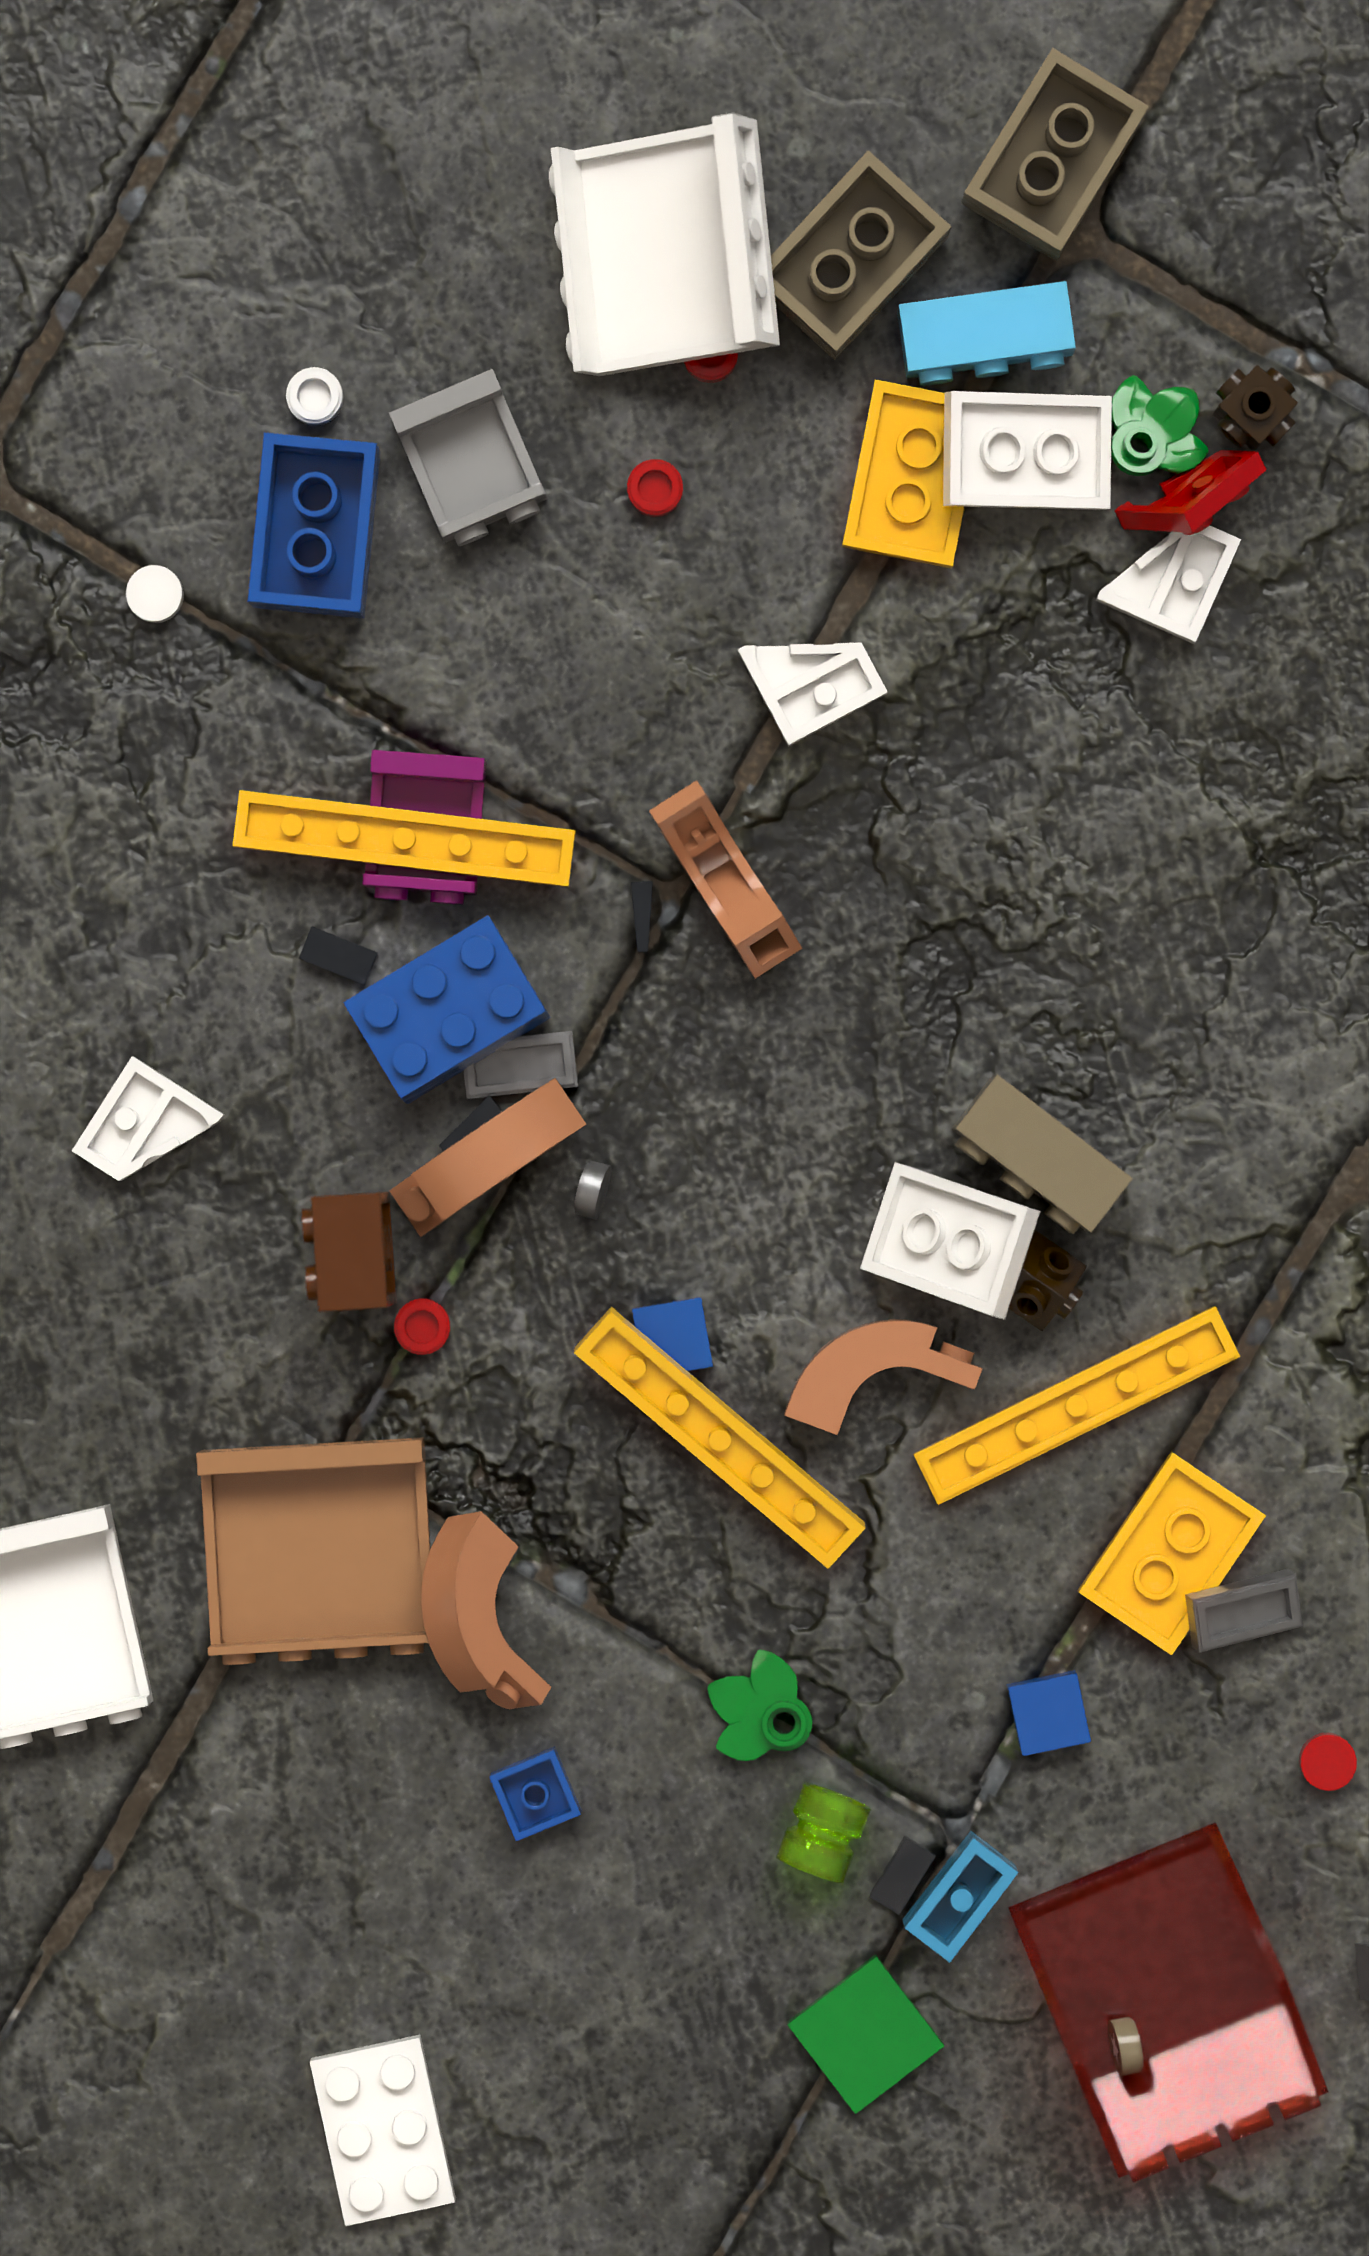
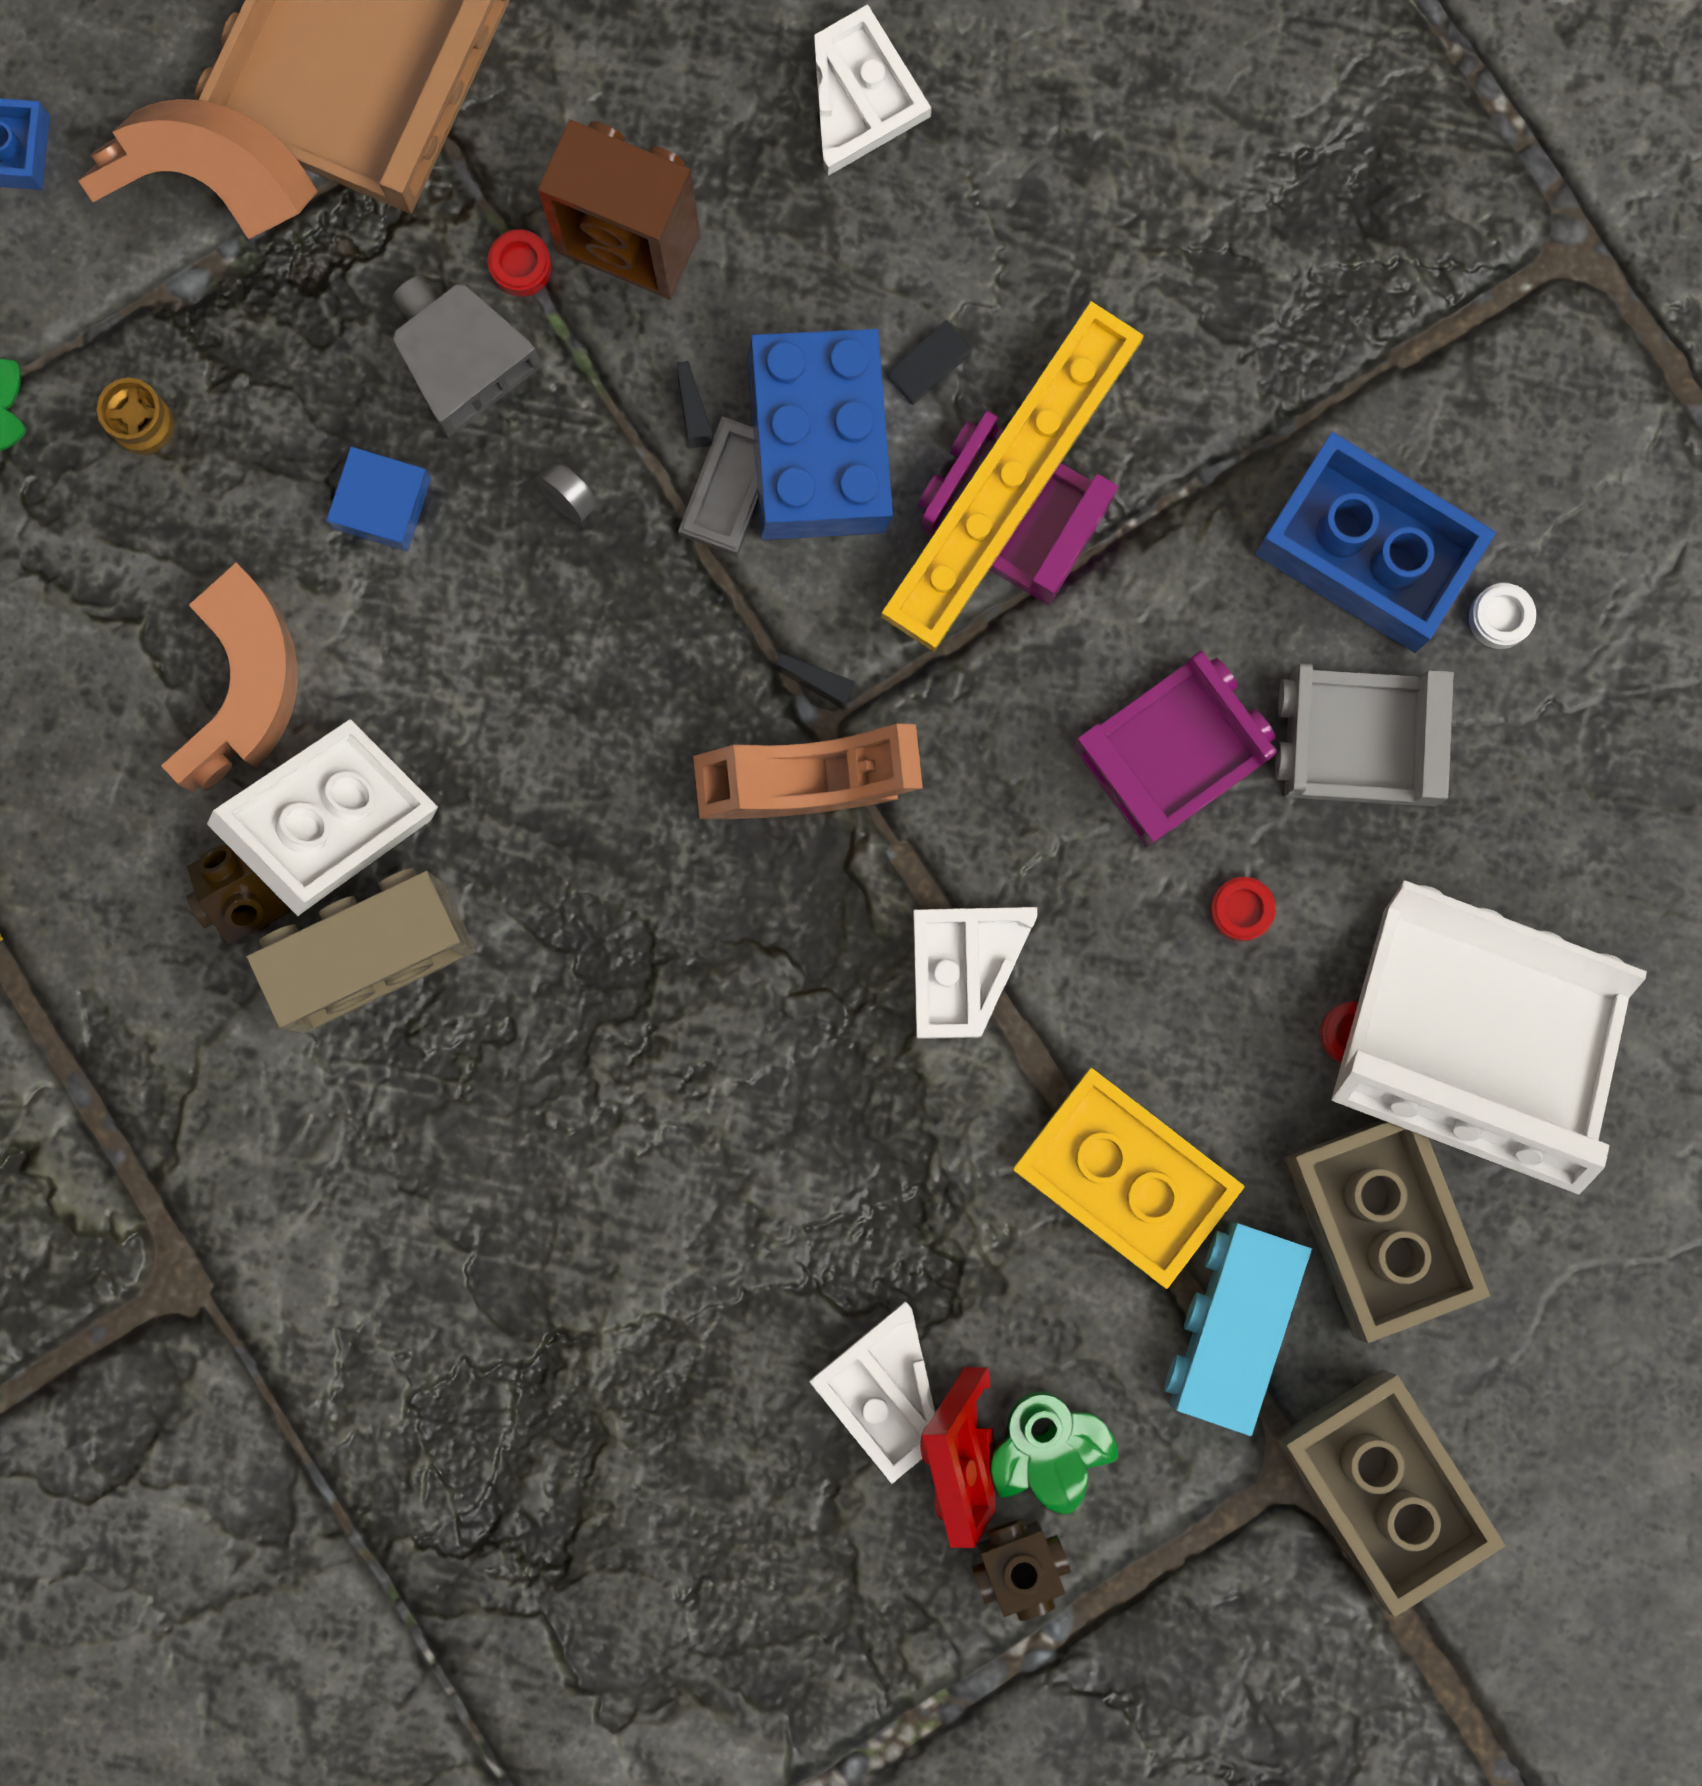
camera: 115 degrees right, 5 degrees down
(154, 594) = (1380, 361): white tile -> none
(487, 1156) = (651, 405): nougat arch -> none
(522, 1335) = (459, 351): none -> flat silver torso
(554, 603) = (1176, 748): none -> magenta panel
(703, 1571) = (126, 406): none -> pearl gold wheel
(719, 1437) = (250, 489): yellow plate -> none
(1027, 450) = (1094, 1306): white plate -> none
(1076, 1405) = (100, 868): yellow tile -> none

